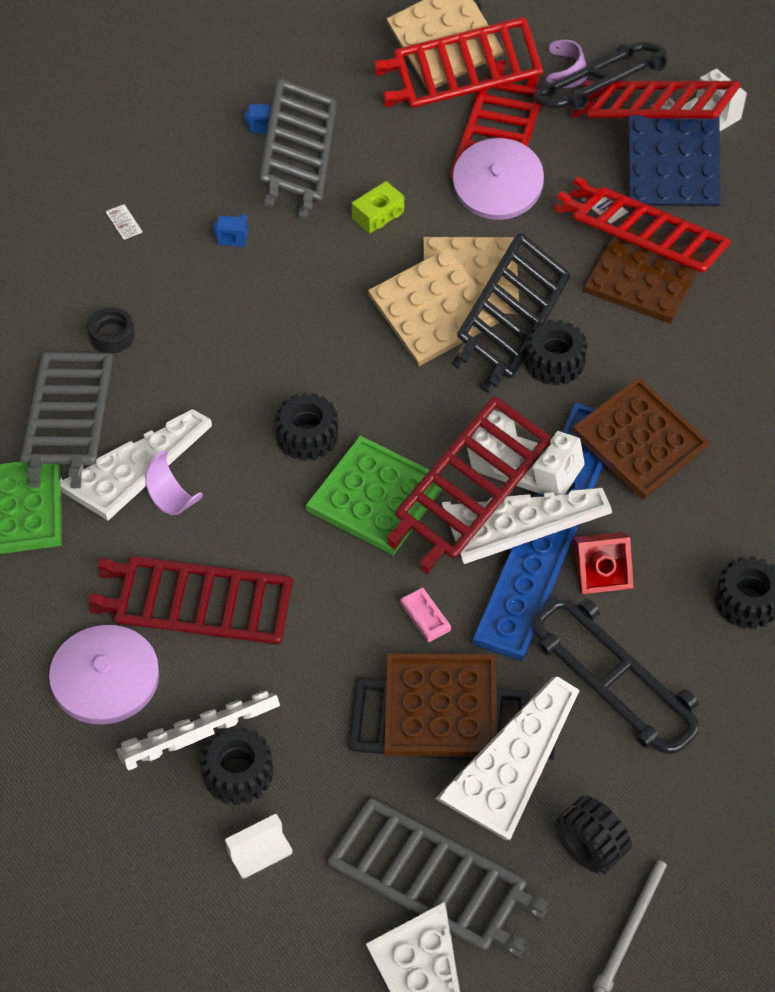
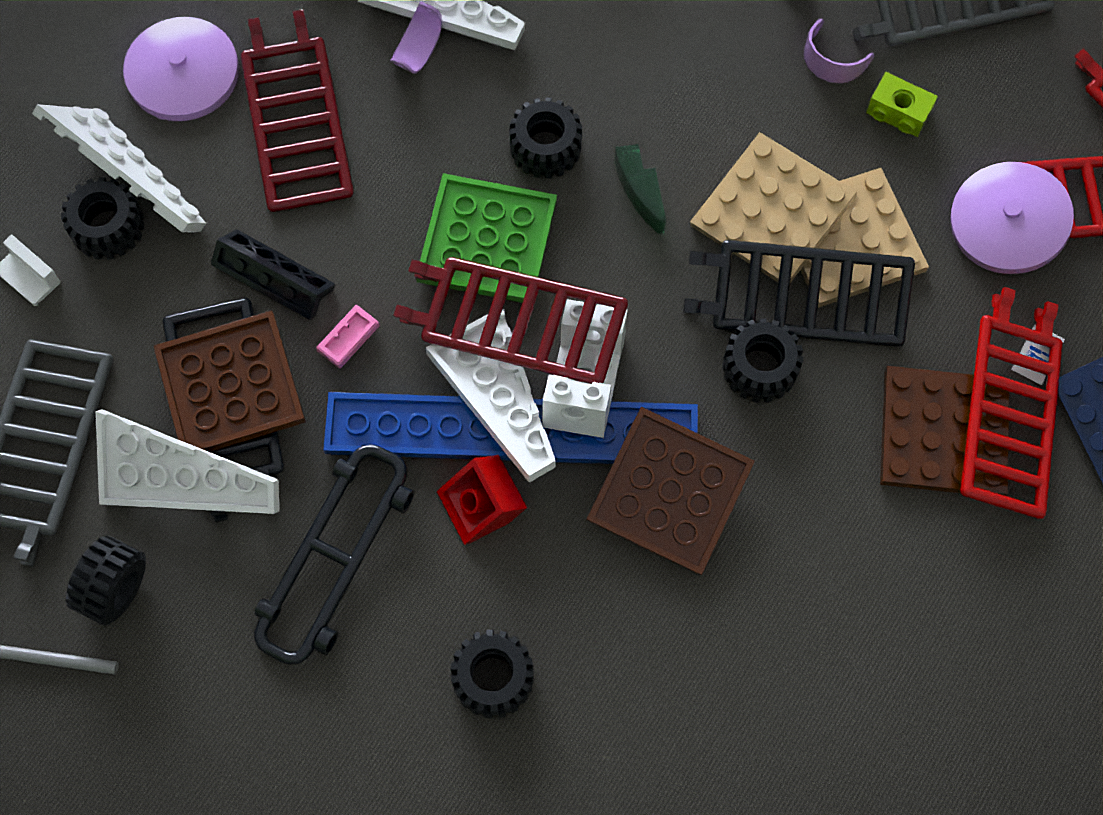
camera: 70 degrees right, 15 degrees up
(316, 242) = (830, 70): none -> lavender piece
(343, 654) = (270, 275): none -> black fence
(377, 381) = (640, 186): none -> clear green slope

